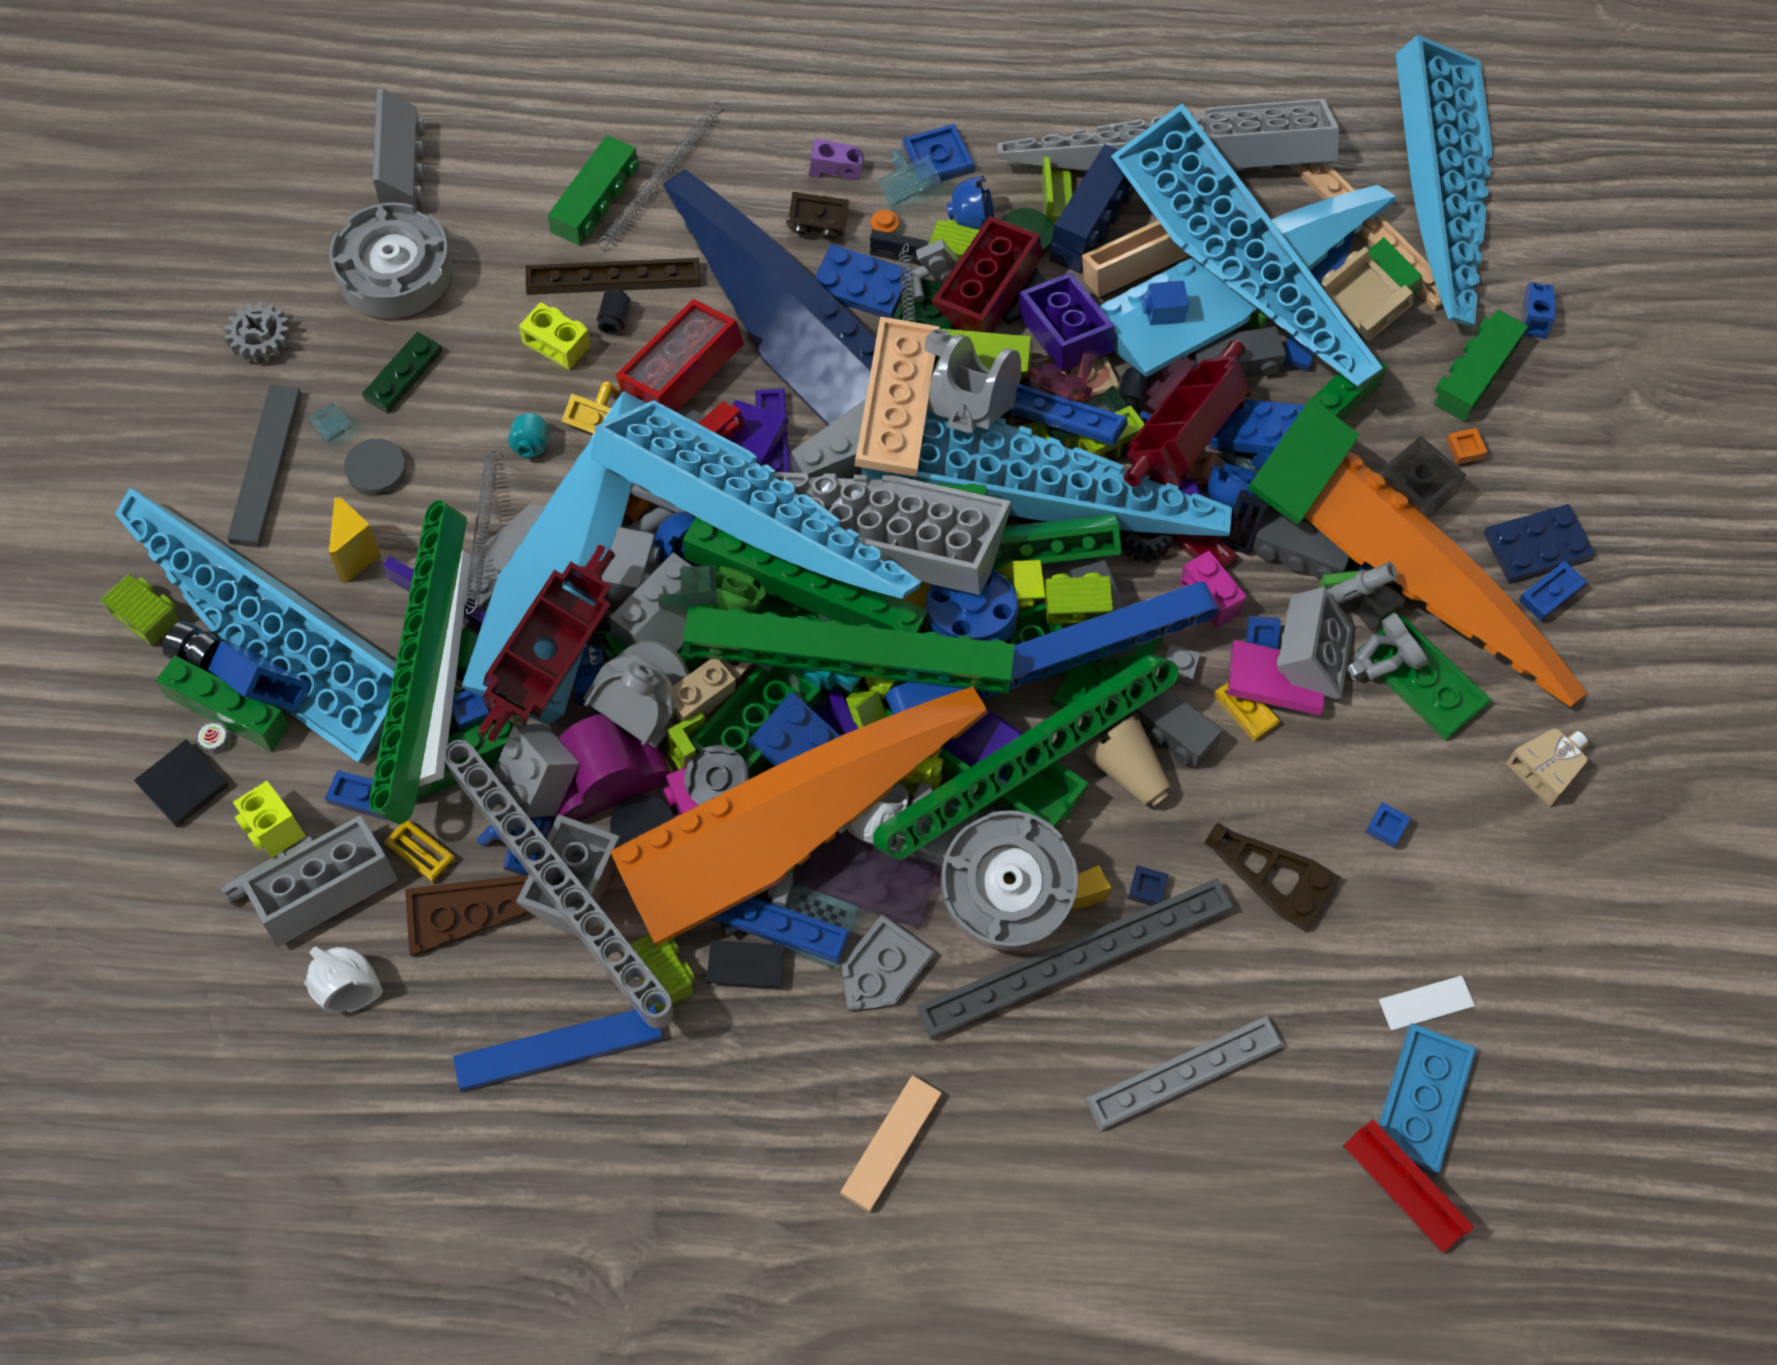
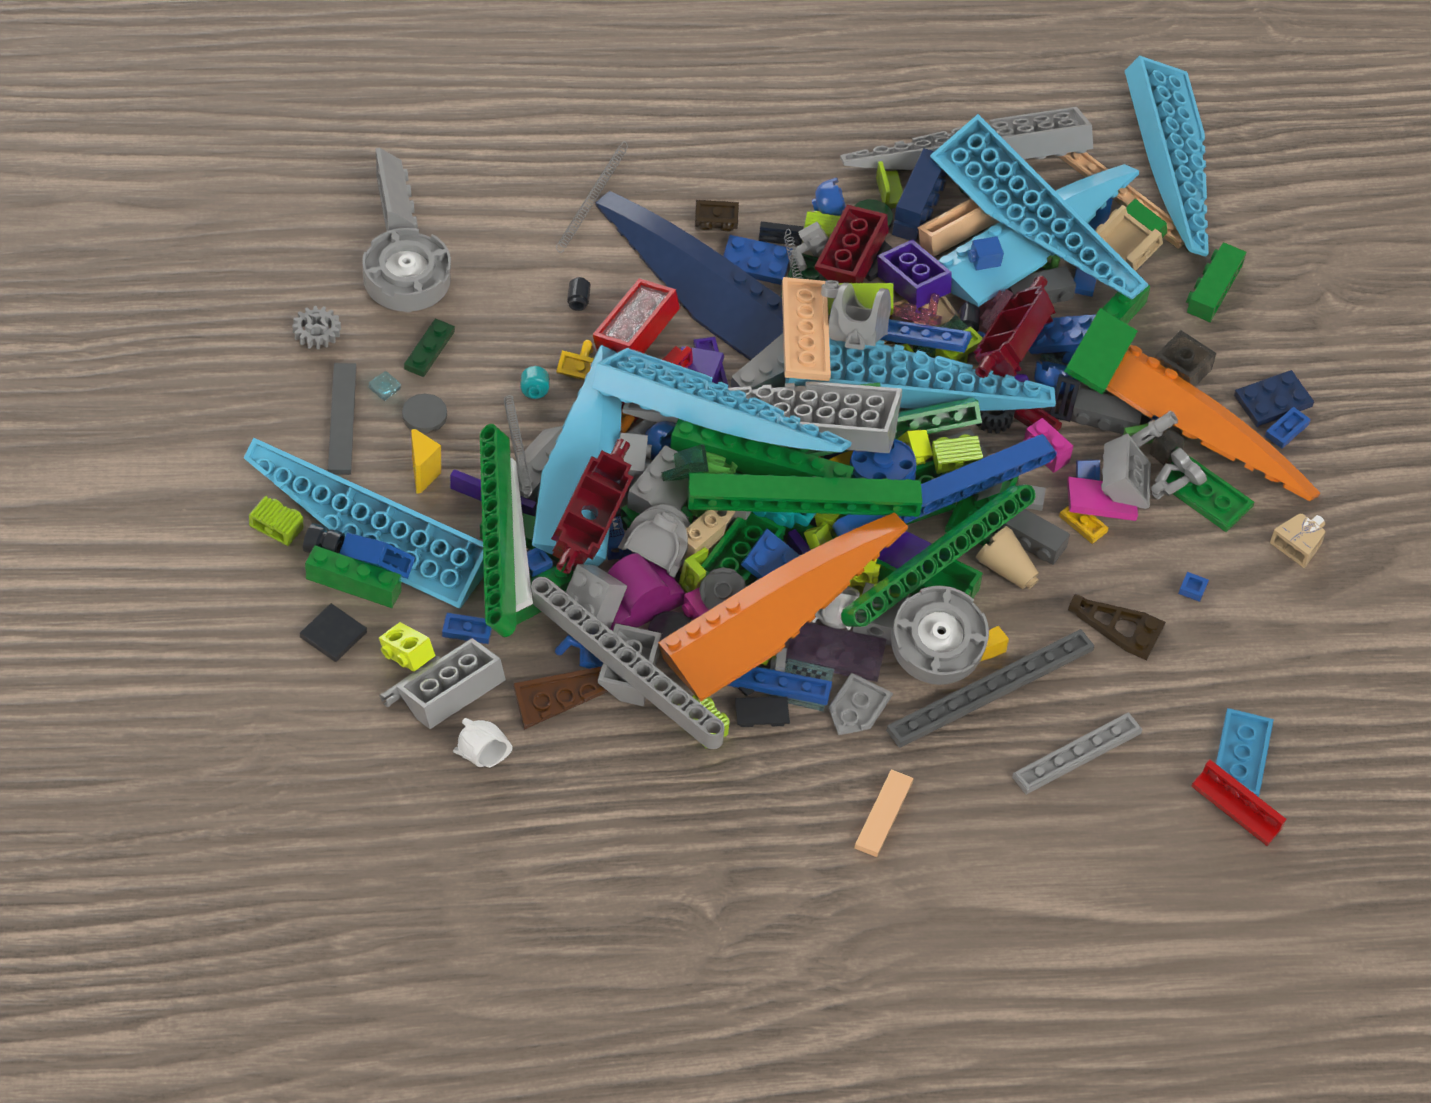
camera: 10 degrees left, 10 degrees down
(213, 738) = (349, 601): tile -> none
(439, 867) = (514, 665): yellow tile -> none
(552, 339) = (538, 313): neon yellow brick -> none
(553, 1049) = (640, 775): blue tile -> none
(593, 190) = (546, 210): green brick -> none
(612, 275) = (571, 268): dark brown tile -> none
(836, 159) = (722, 175): medium lavender leg -> none
(884, 221) = (766, 215): orange plate -> none
(908, 179) = (779, 184): clear light blue plate -> none
(944, 149) = (797, 167): blue tile -> none
(1147, 886) = (1032, 639): dark blue tile -> none
(1202, 468) = (1028, 365): nougat plate -> none
(1426, 1002) = (1236, 696): white sticker -> none
(1466, 446) = (1214, 337): orange plate -> none
(1539, 309) = (1253, 241): blue leg -> none

